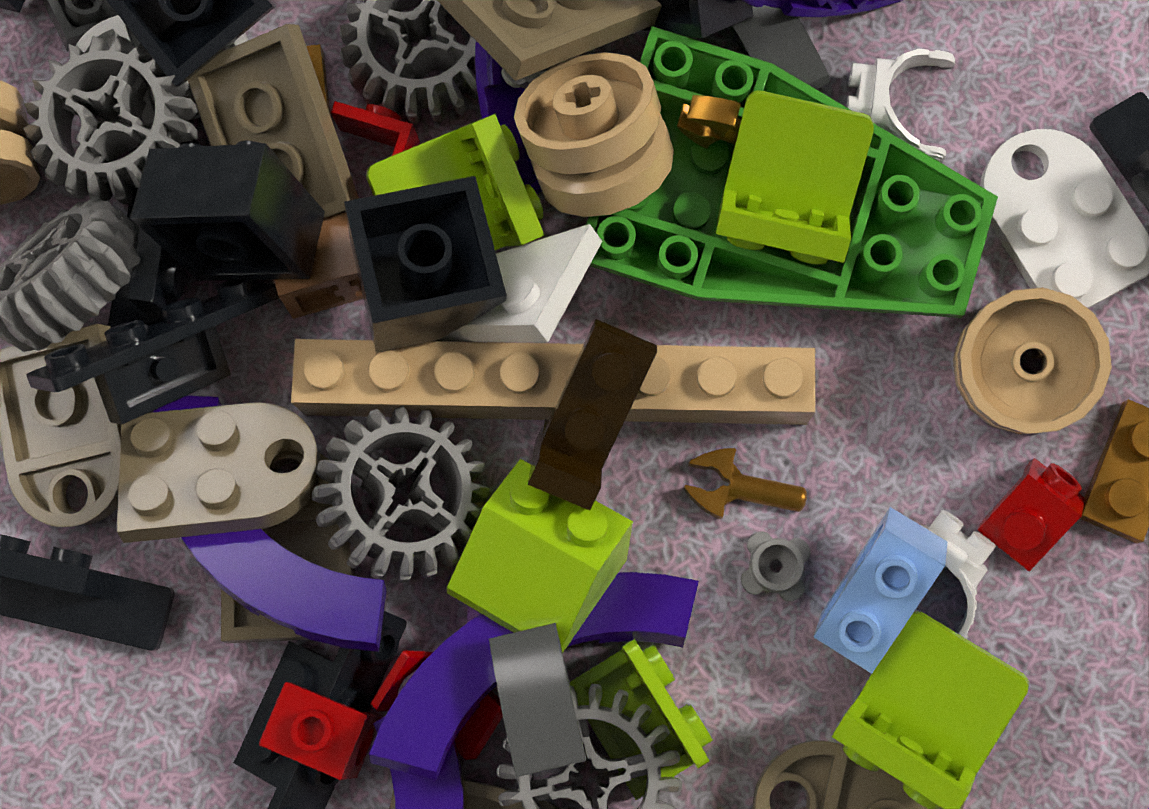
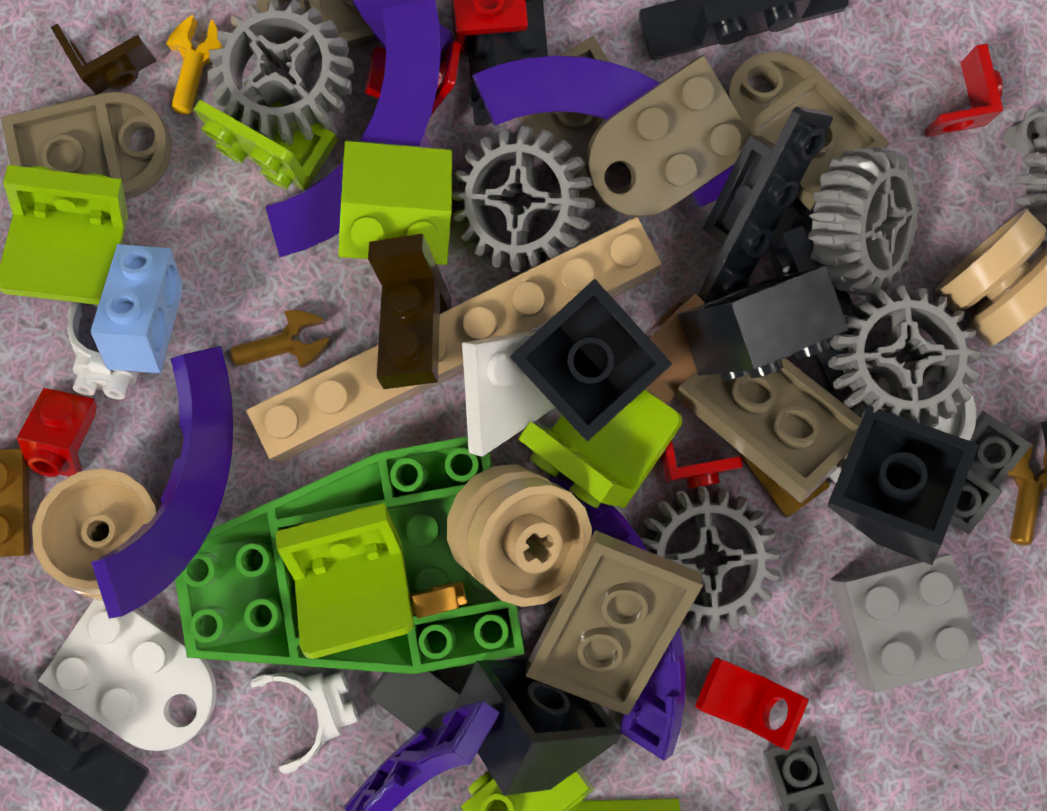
camera: 145 degrees right, 5 degrees up
(536, 700) = (338, 92): dark grey slope -> none
(791, 556) = (215, 292): light grey plate -> none
(967, 301) = (192, 496): none -> dark purple tile

